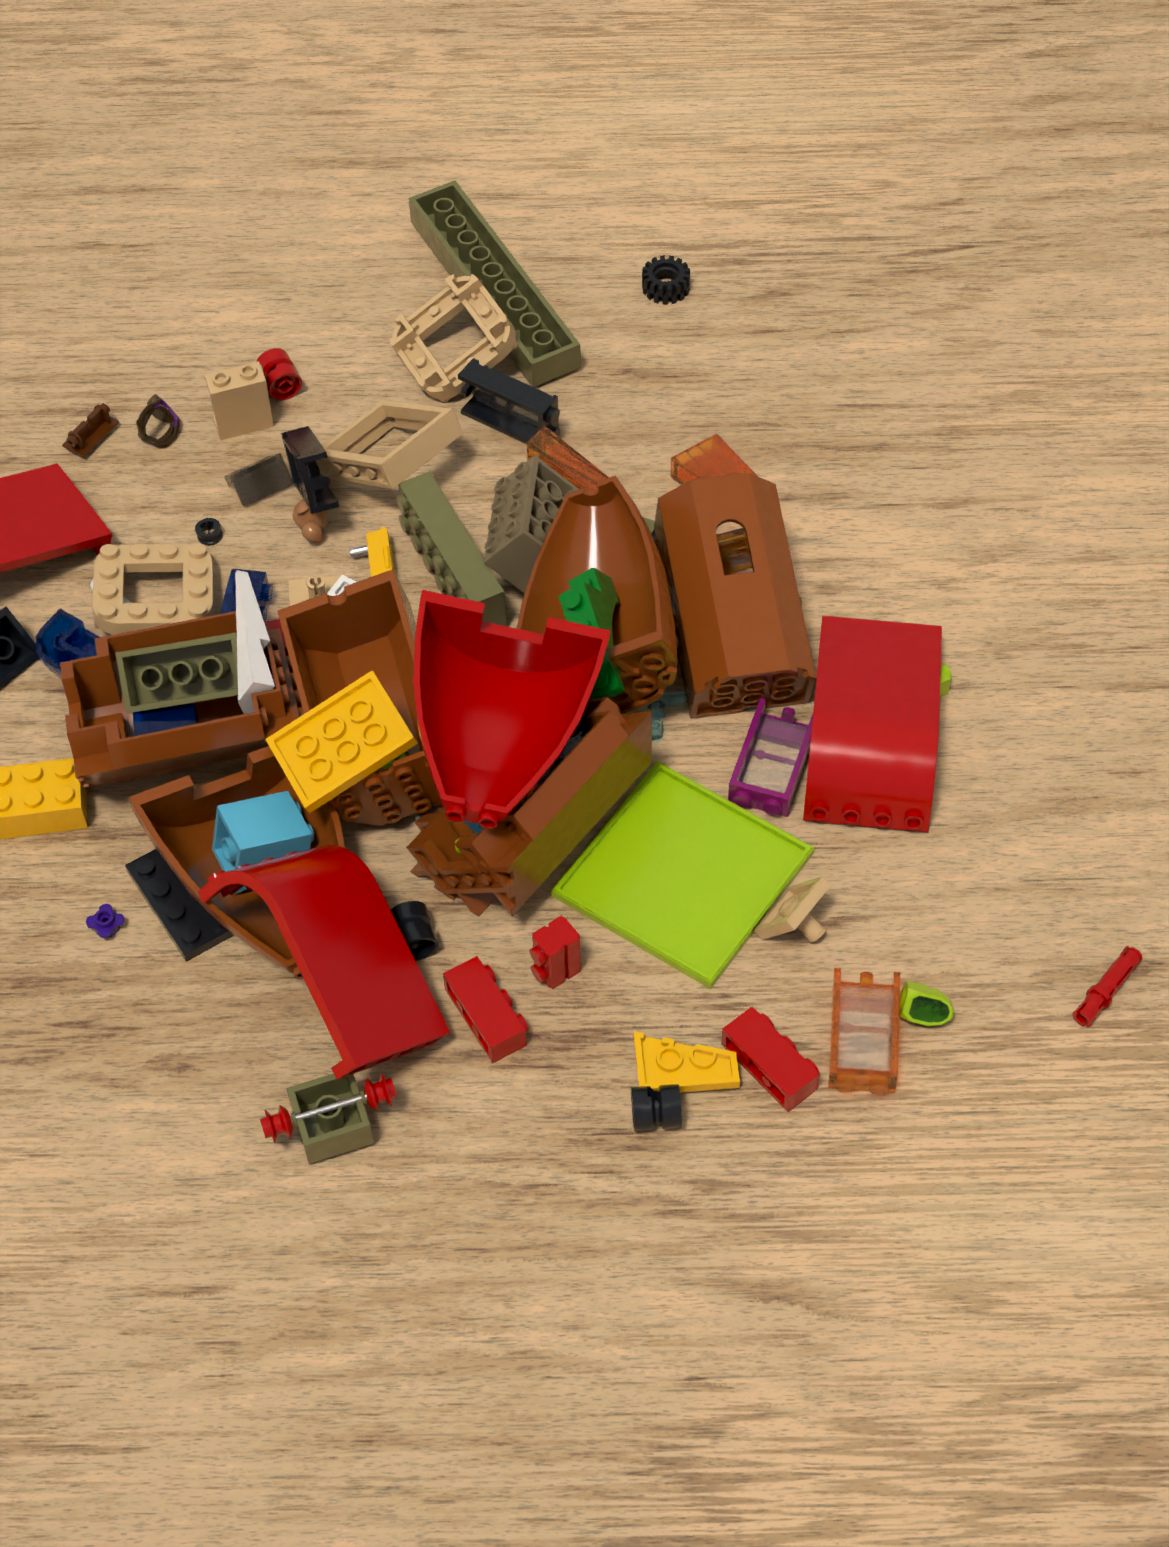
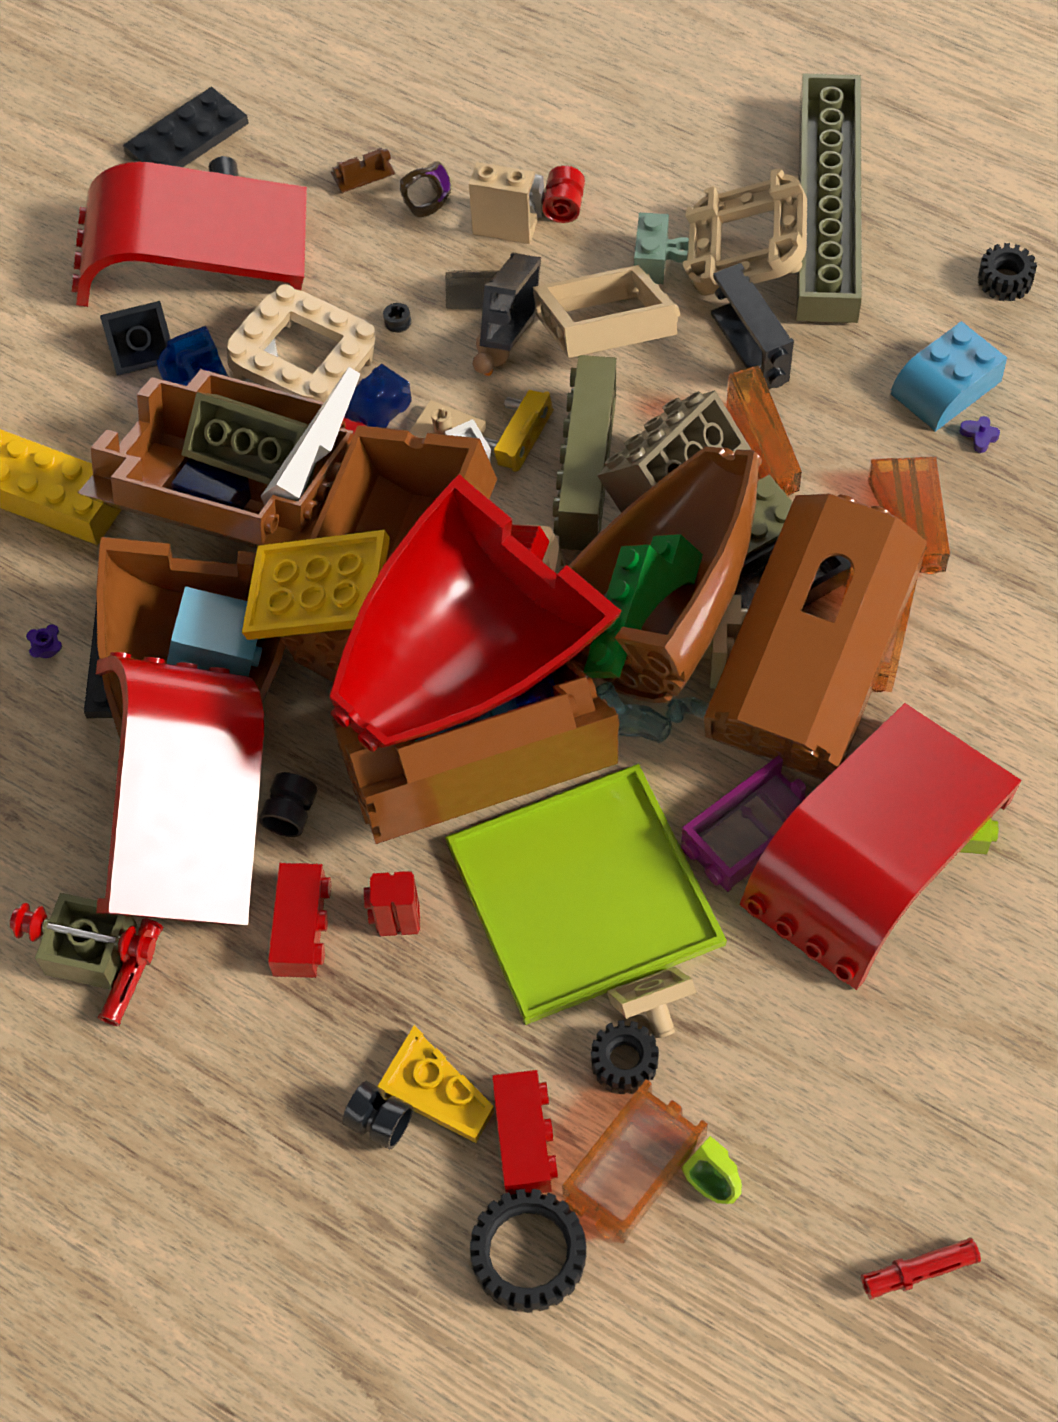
camera: 35 degrees right, 5 degrees up
(381, 1129) = (127, 980): none -> red pin
(383, 381) = (655, 248): none -> sand green brick
(680, 373) = (949, 376): none -> dark azure brick
(729, 403) = (980, 432): none -> dark purple piece
(802, 982) = (630, 1036): none -> black tyre
(843, 1099) = (529, 1203): none -> black tyre

